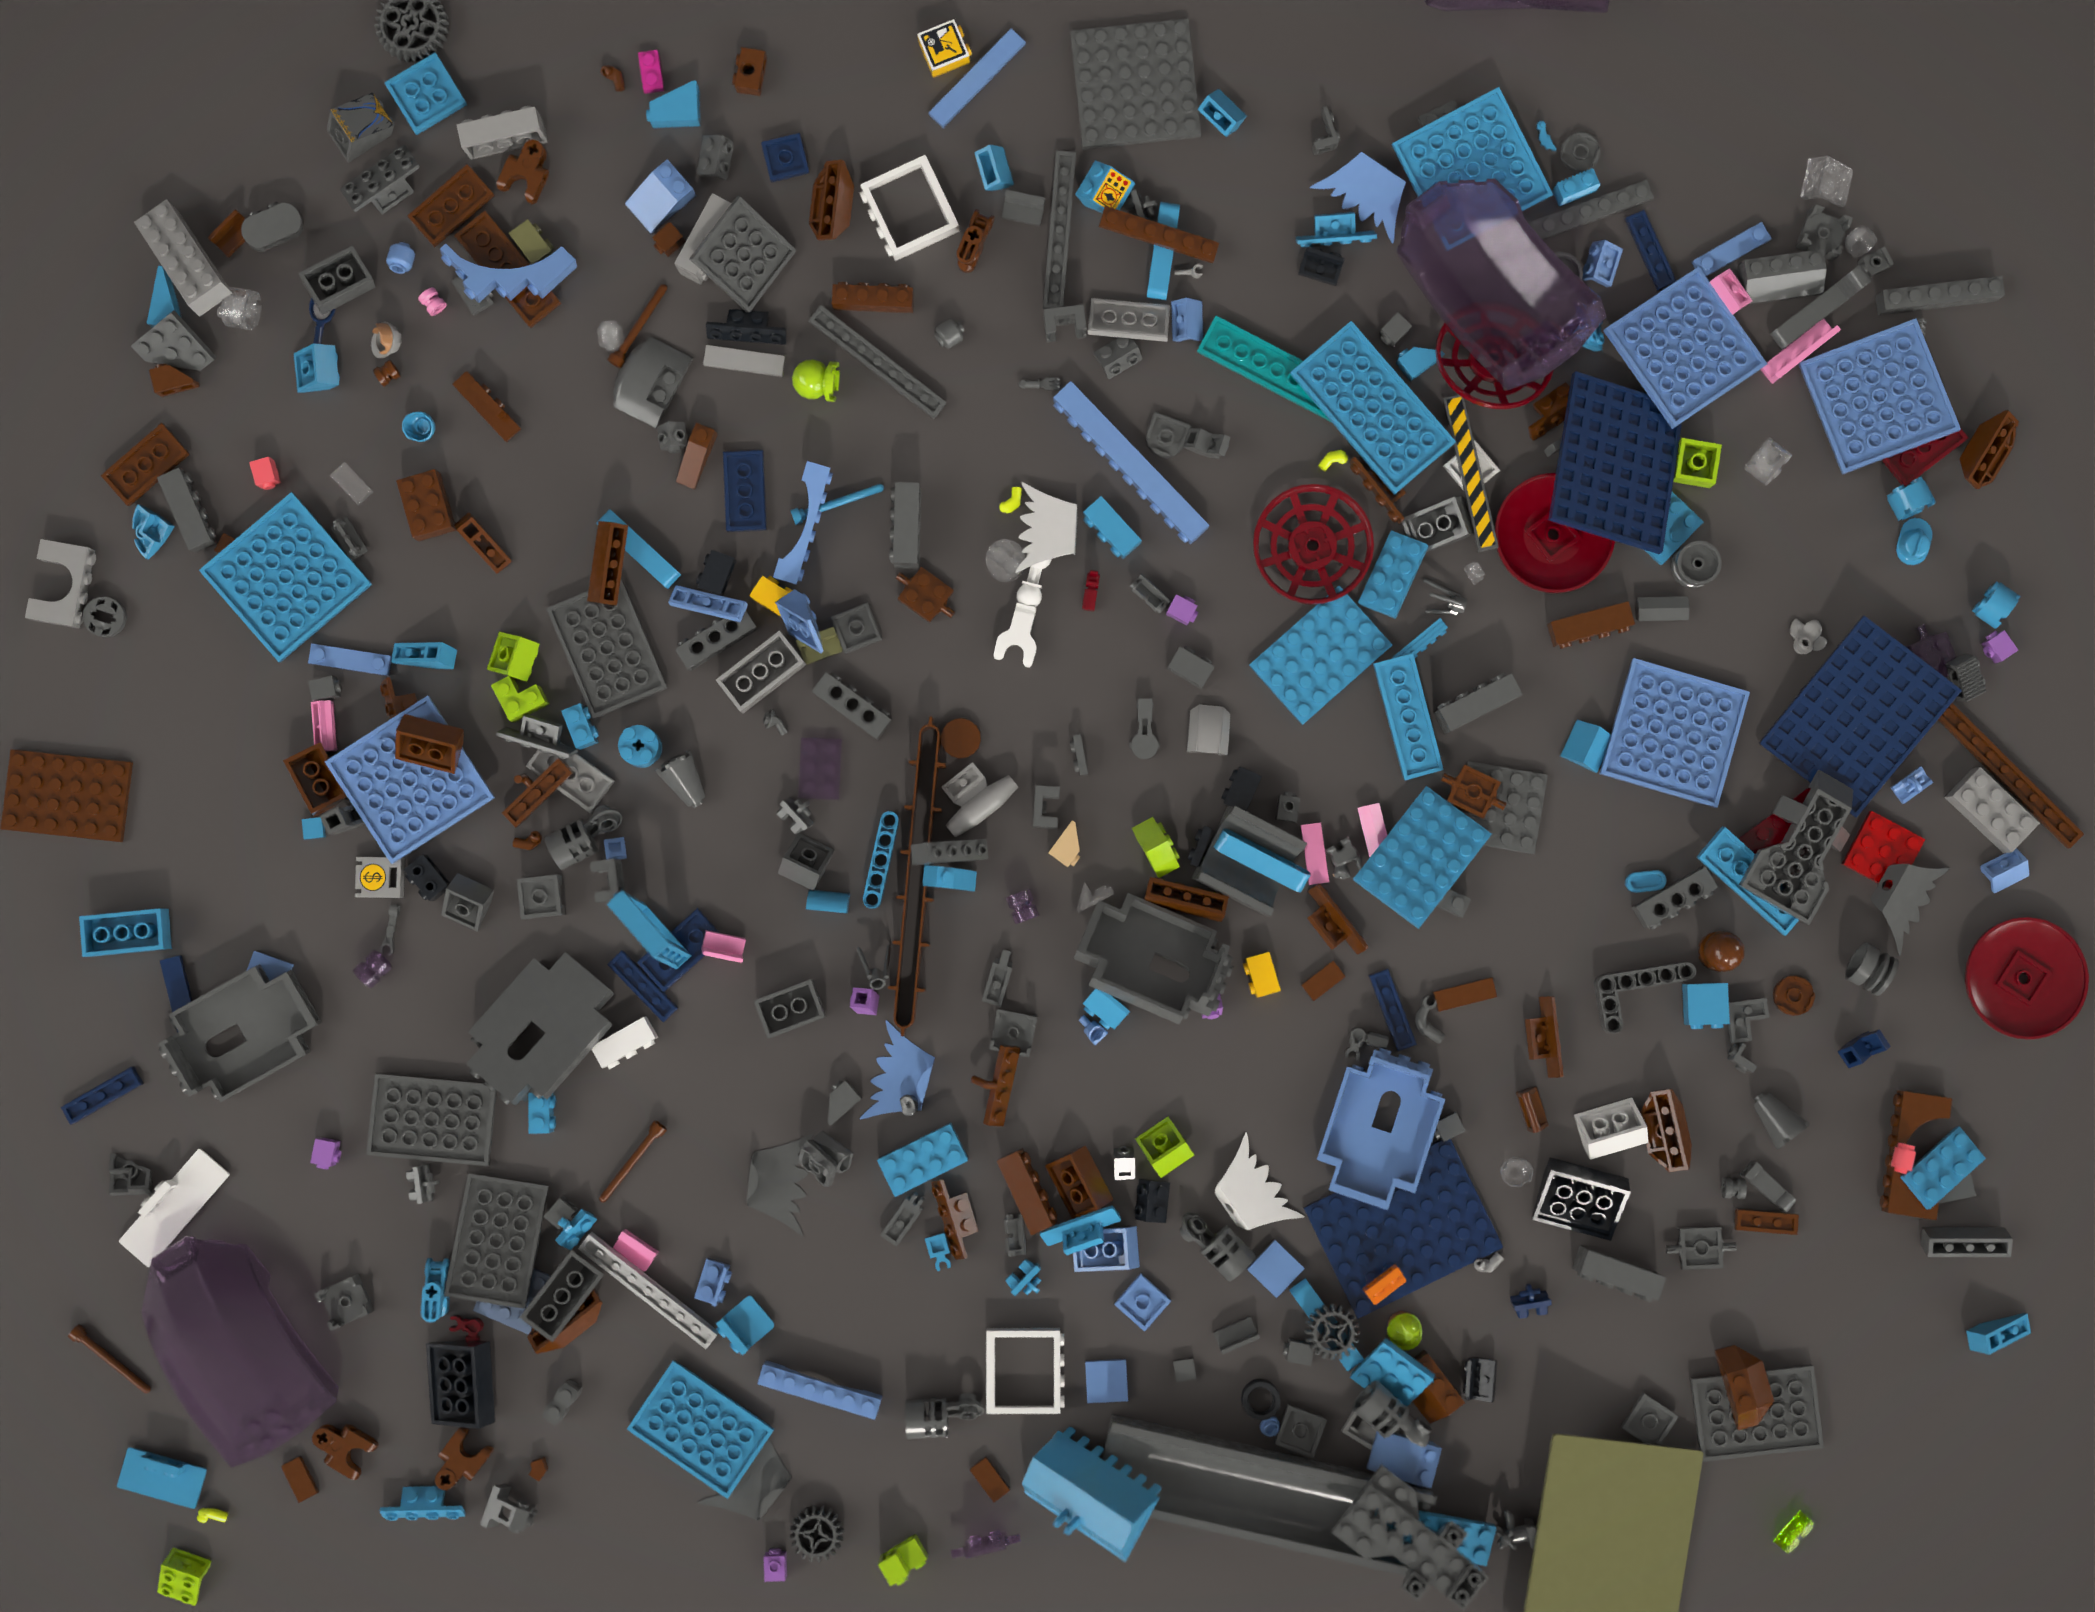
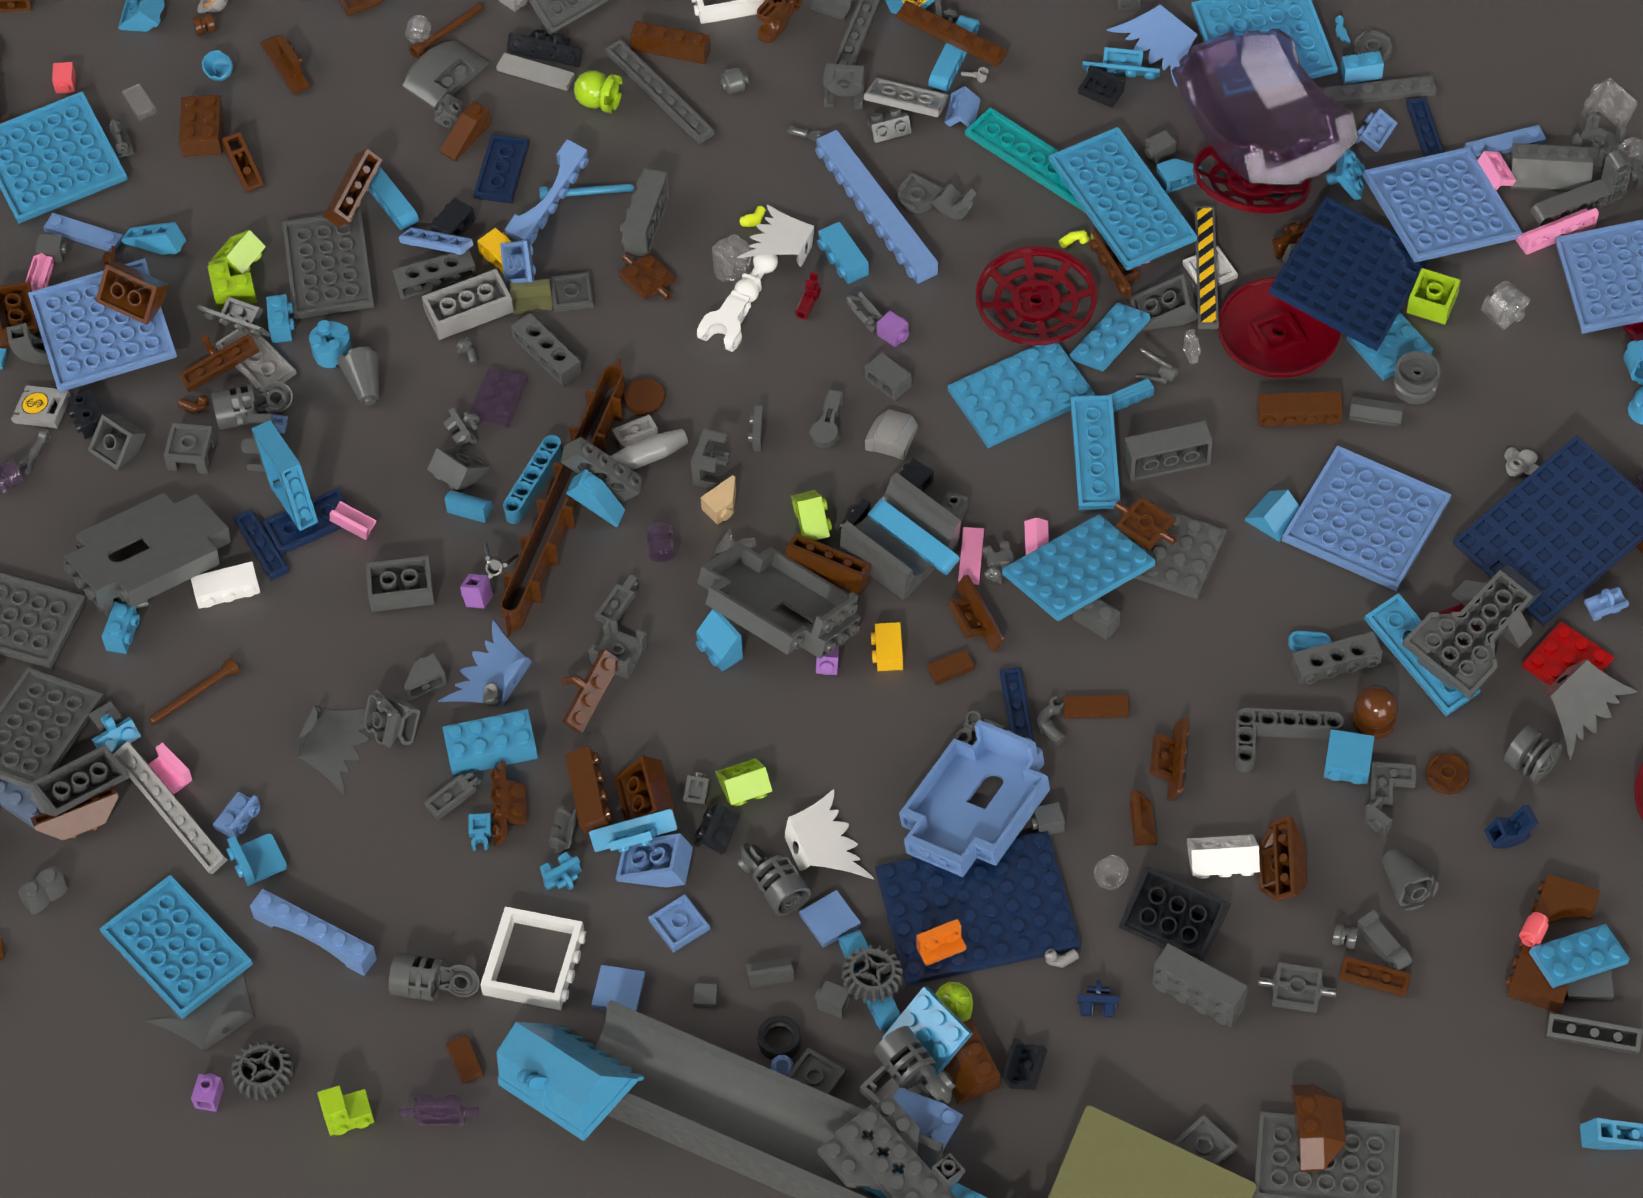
camera: 15 degrees right, 30 degrees down
(1093, 1030) = (700, 664): medium blue piece -> none

